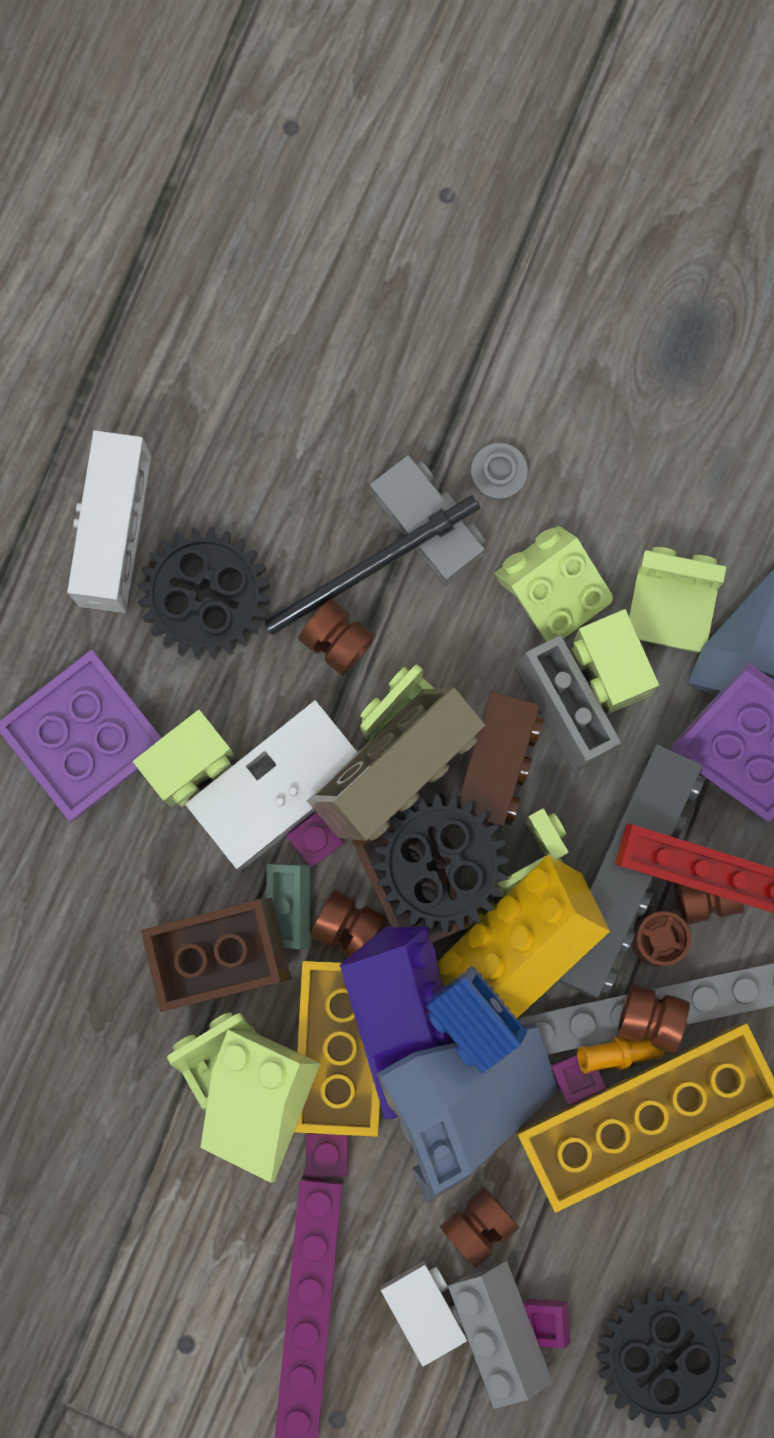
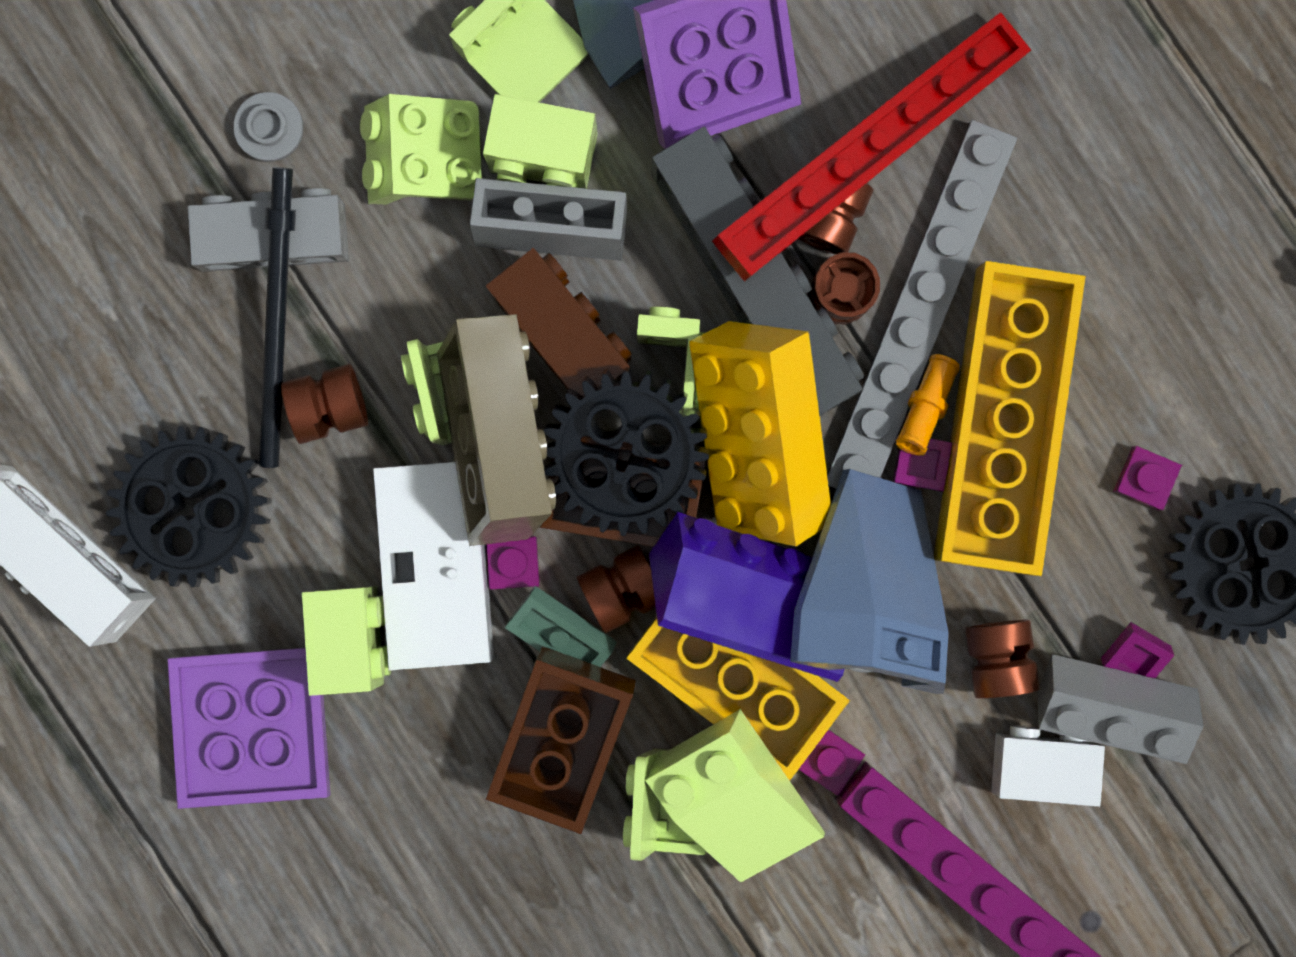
camera: 60 degrees left, 5 degrees up
(476, 1020) = (805, 526): blue brick -> none
(653, 1018) = (923, 345): copper wheel -> none
(677, 1245) = (1147, 478): none -> magenta plate

